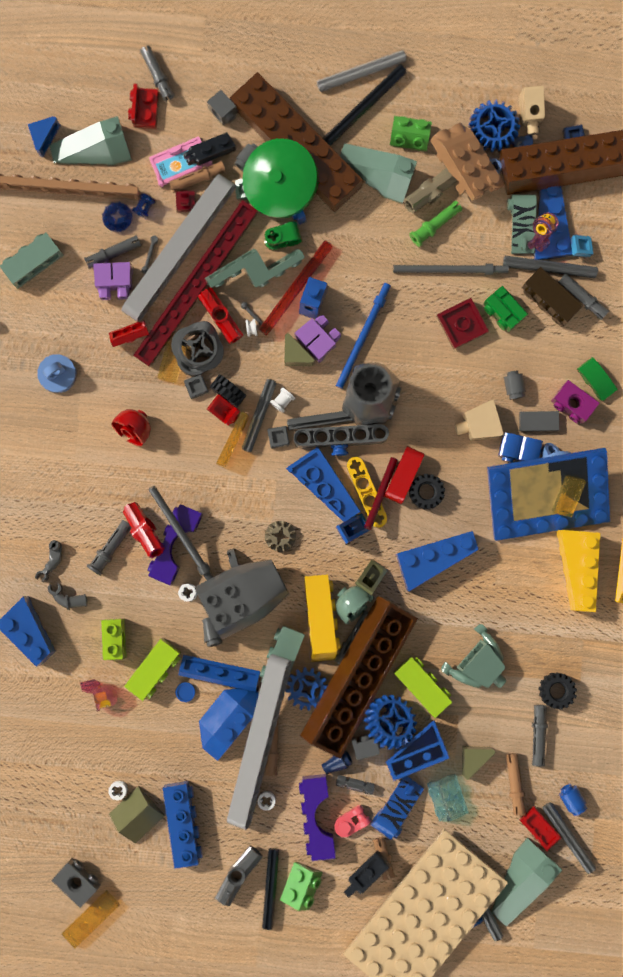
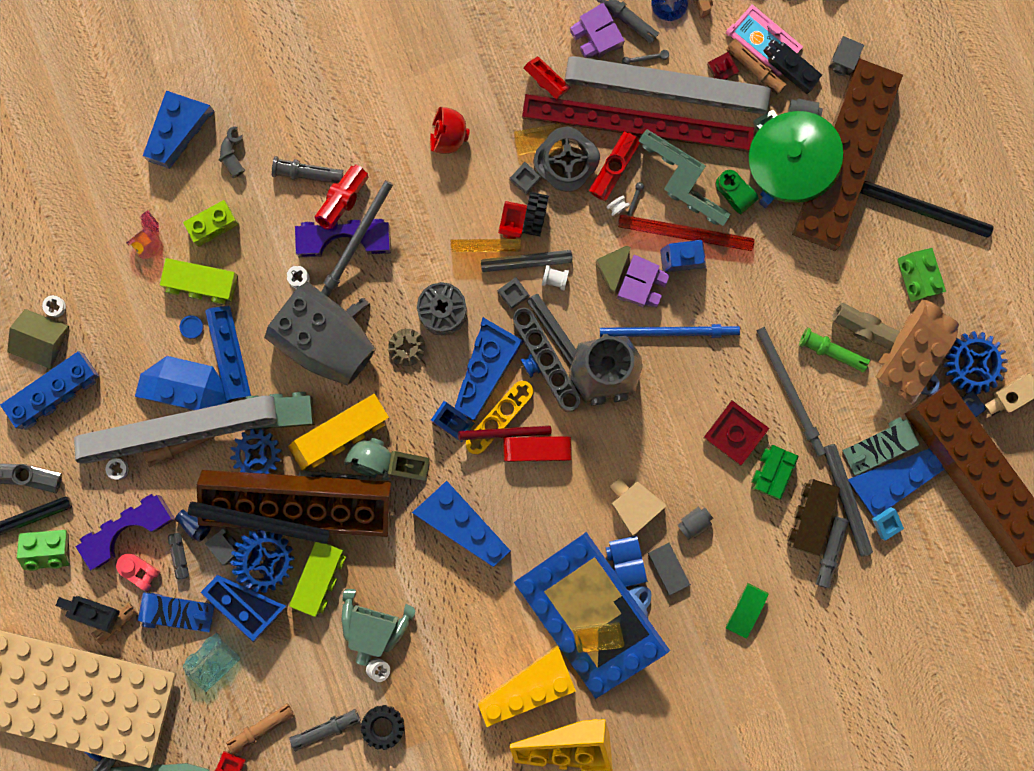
camera: 55 degrees right, 0 degrees up
(55, 553) = (267, 119): dark grey arm -> none
(57, 373) = (466, 23): medium blue tile -> none
(144, 198) = (702, 29): clear blue bush -> none
(210, 635) = (260, 324): dark grey cone -> none
(273, 503) = (436, 321): none -> dark grey wheel
(361, 71) = (965, 187): light grey axle -> none
(361, 711) = (258, 522): none -> black axle
(382, 170) = (862, 265): sand green wedge -> none
(438, 491) = (538, 469): black tyre -> none
(474, 758) = (266, 670): olive slope -> none
(509, 676) = (373, 666): none -> white bush
(543, 228) = (885, 471): clear pink piece -> none
(573, 131) = (1013, 455): dark blue tile -> none
(585, 402) = (712, 611): magenta brick -> none

